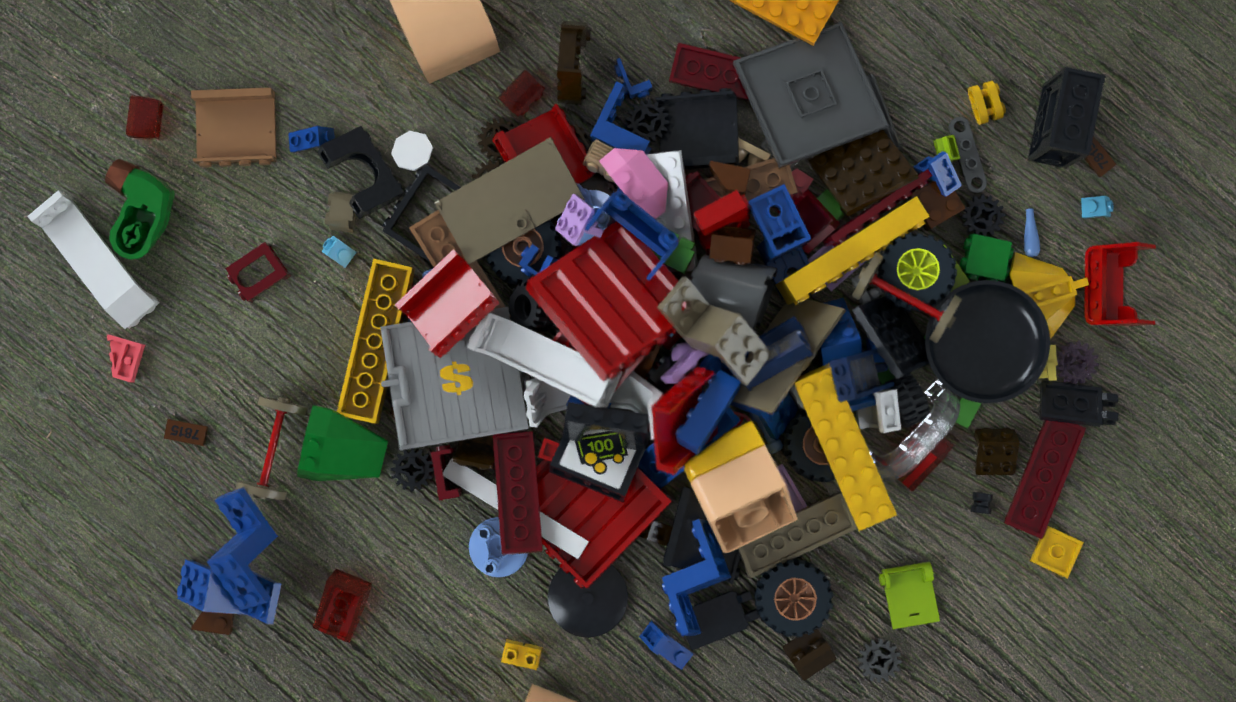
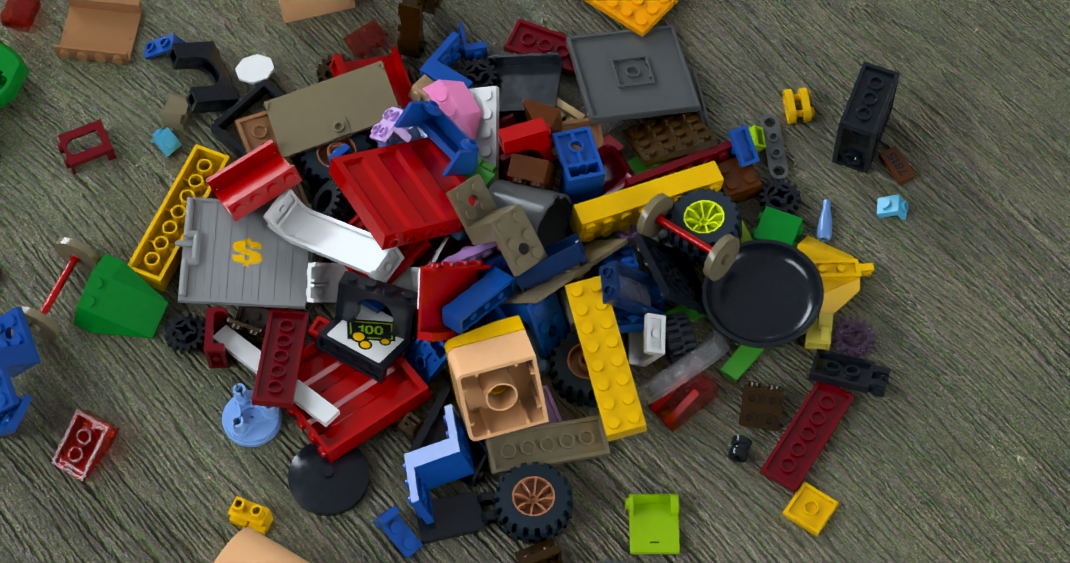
camera: 15 degrees right, 25 degrees down
(1105, 290) = (893, 270): red windscreen -> none

